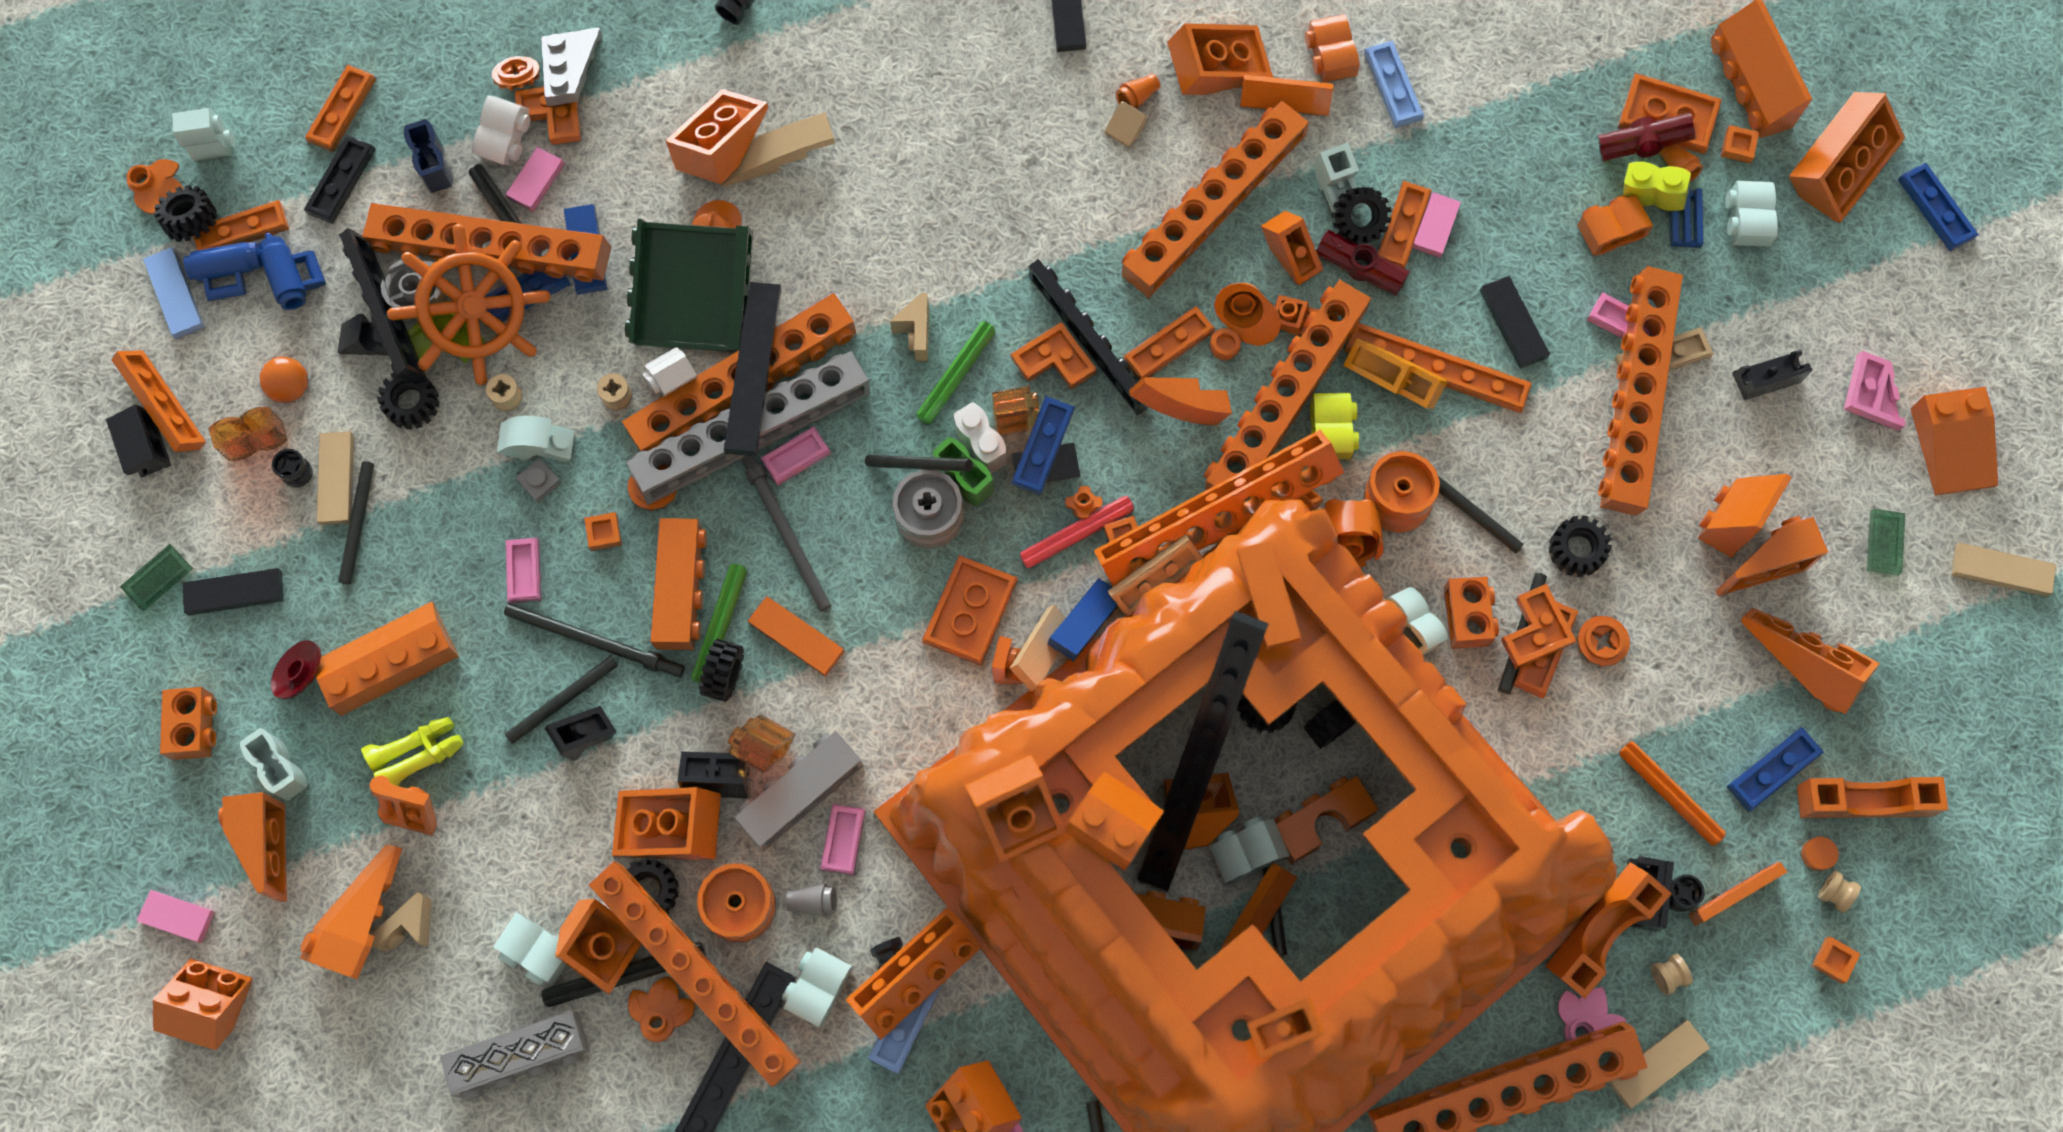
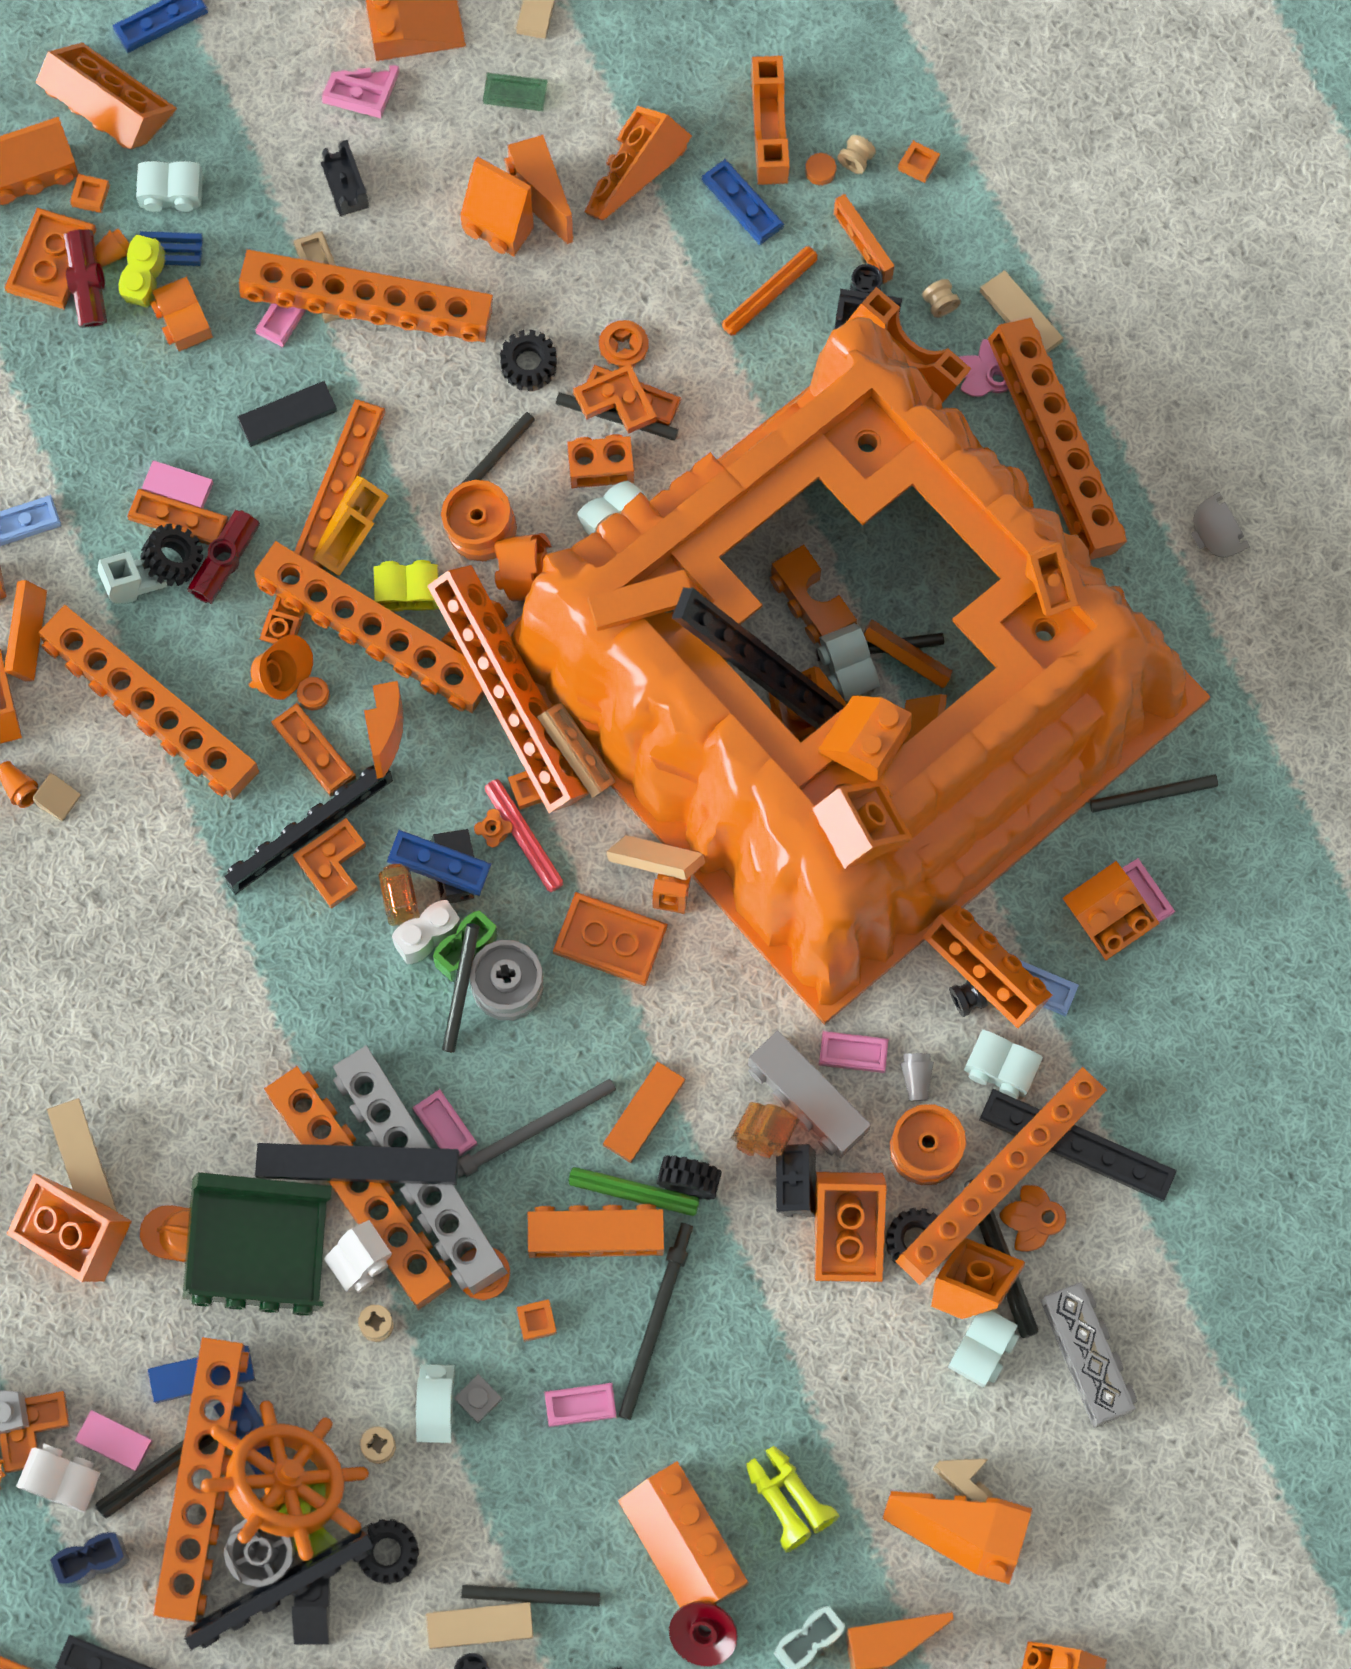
camera: 95 degrees left, 0 degrees up
(403, 806) = (850, 1491): orange plate -> none
(561, 699) = (721, 1349): pearl dark grey bar -> none
(580, 731) = (758, 1318): black slope -> none
(915, 321) = (290, 1002): tan slope -> none
(955, 372) = (348, 963): bright green axle -> none
(1084, 621) = (622, 819): blue tile -> none
(1292, 246) = (203, 625): orange slope -> none

